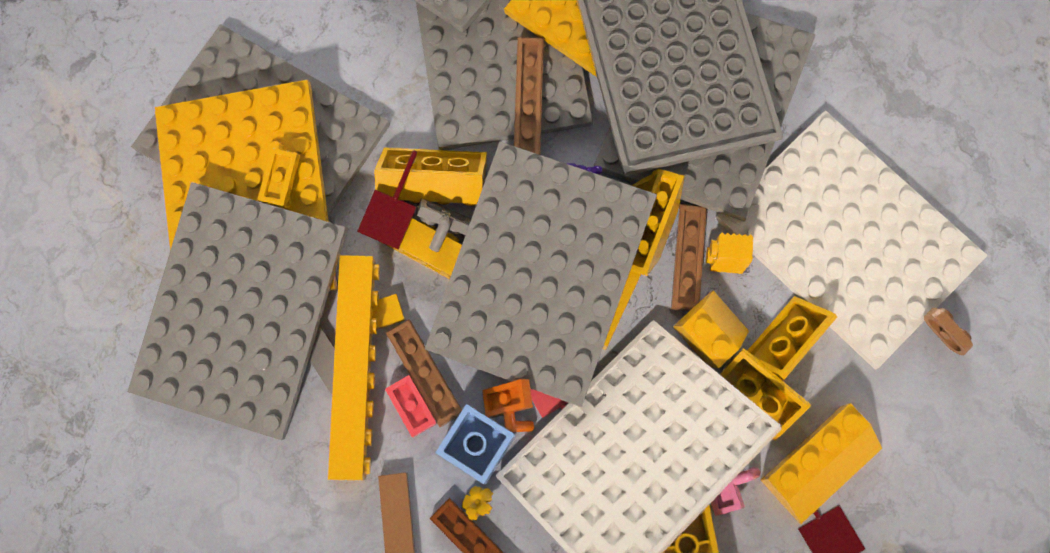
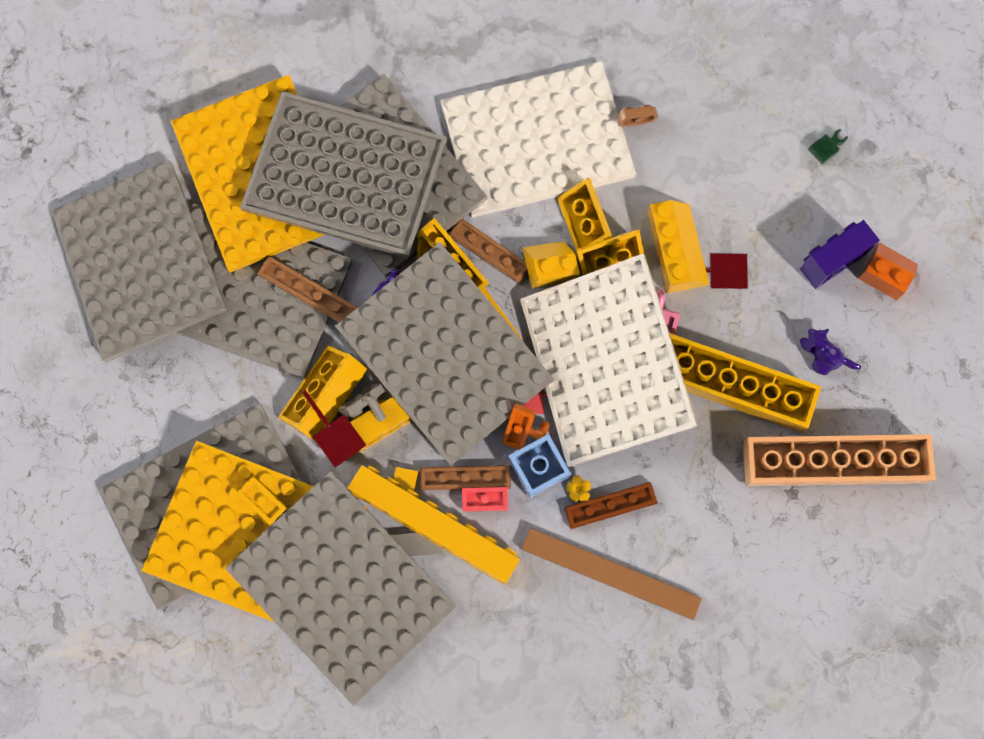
camera: 65 degrees left, 0 degrees up
(730, 253) = (505, 220): yellow brick -> none

